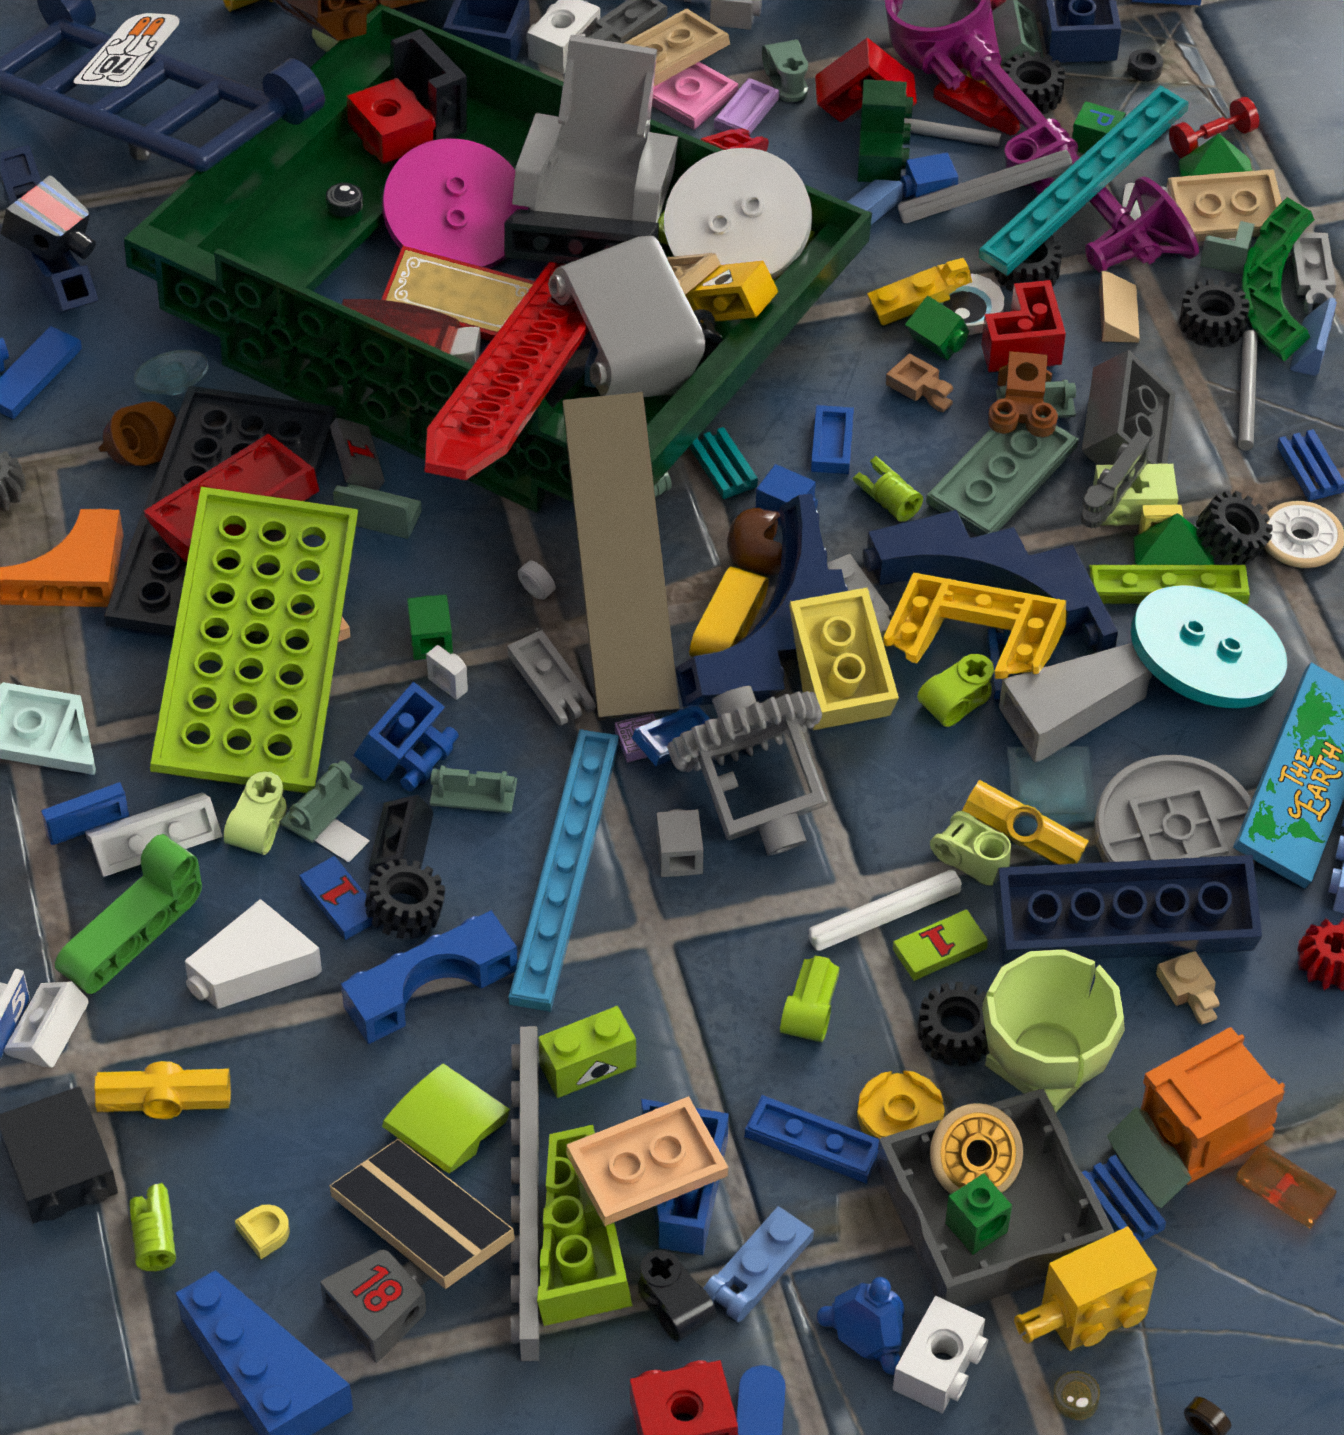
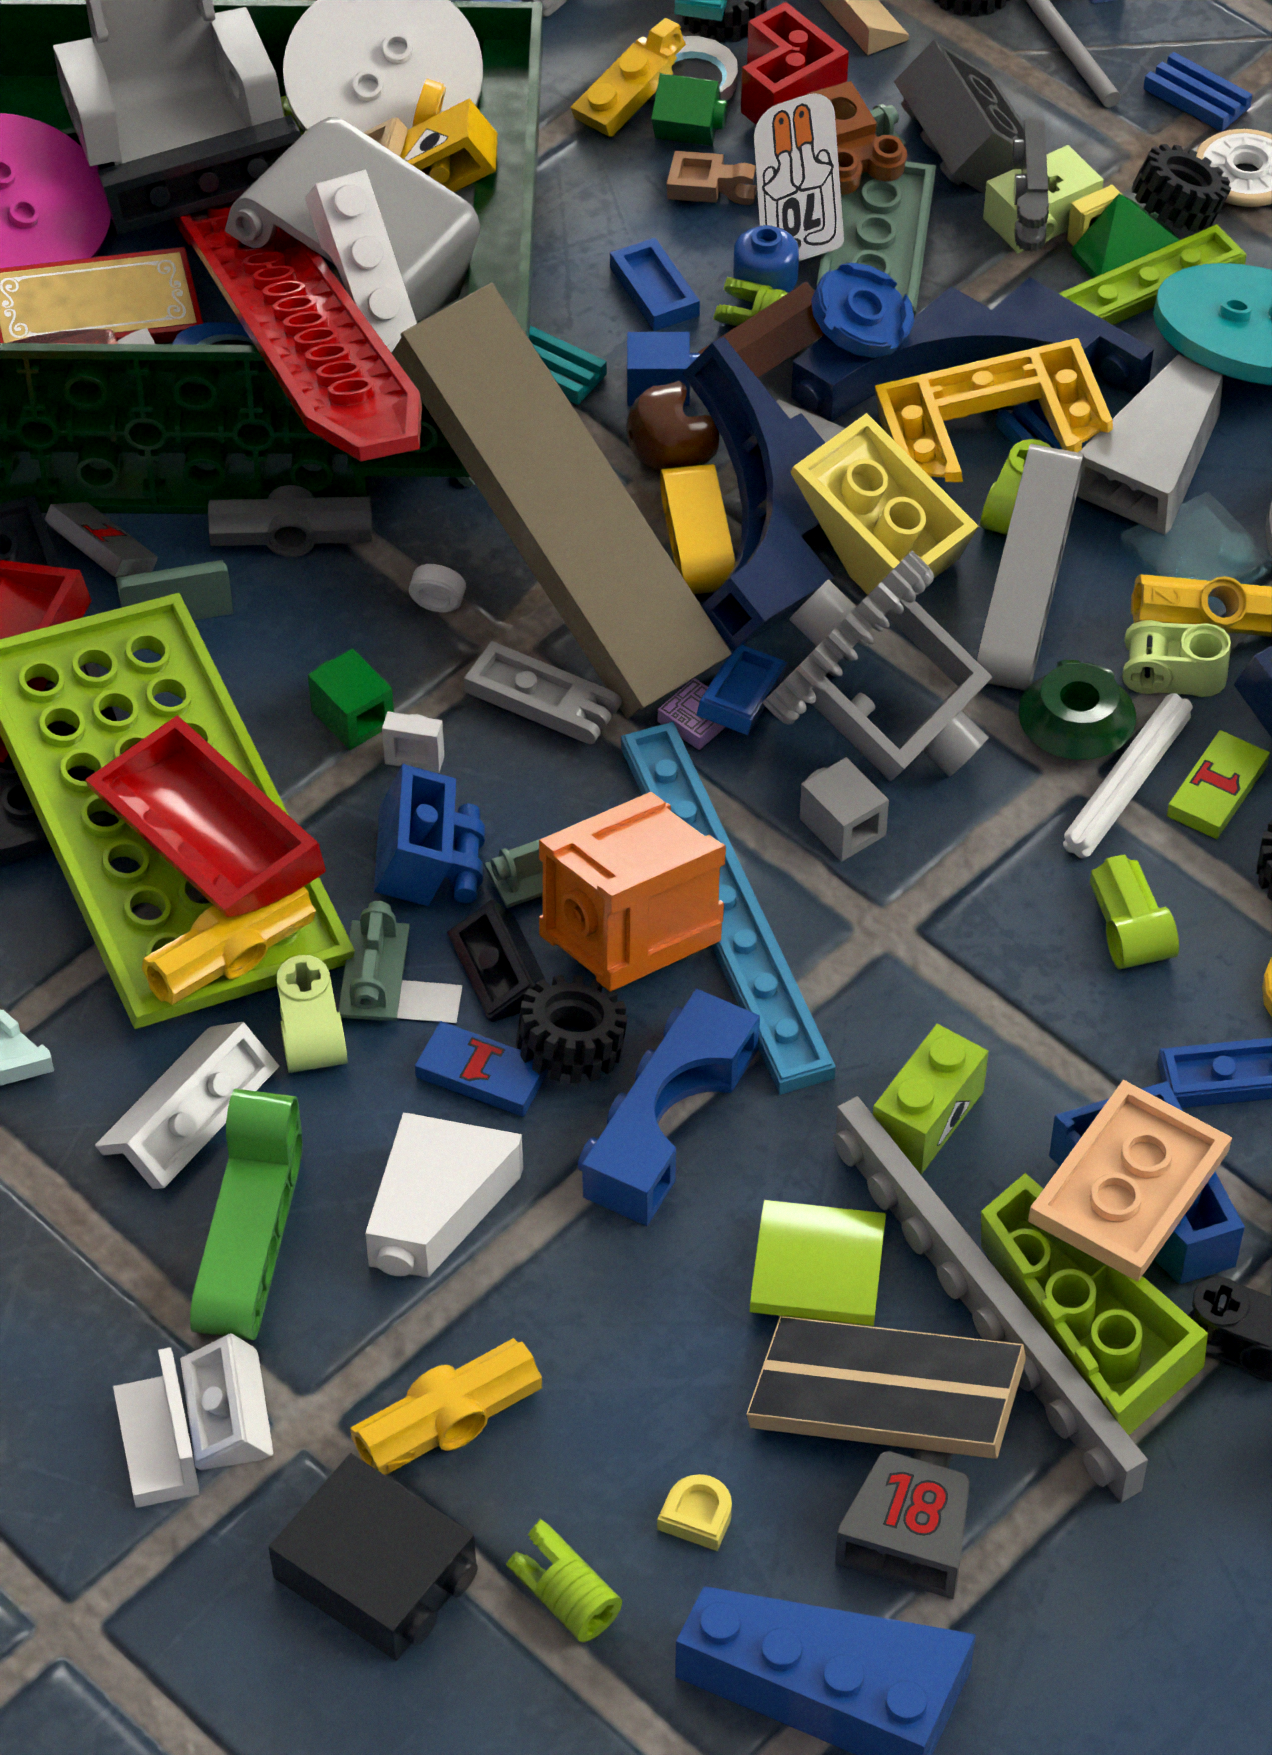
camera: 30 degrees left, 0 degrees up
(85, 813) = (85, 1121): blue tile -> none
(233, 742) = (223, 946): none -> yellow piece
(262, 662) = (208, 820): none -> red slope
(484, 496) = (290, 521): none -> dark grey piece
(492, 828) = (631, 890): none -> orange container
(601, 337) = (359, 245): none -> white arch
(747, 250) = (430, 101): none -> yellow tile
(866, 508) = (776, 331): none -> reddish brown piece
(881, 852) = (1077, 711): none -> dark green piece
(909, 455) = (767, 257): none -> blue head
(916, 741) = (1030, 566): none -> light grey beam
(931, 517) = (862, 310): none -> blue tile
(969, 409) = (800, 173): none -> sticker

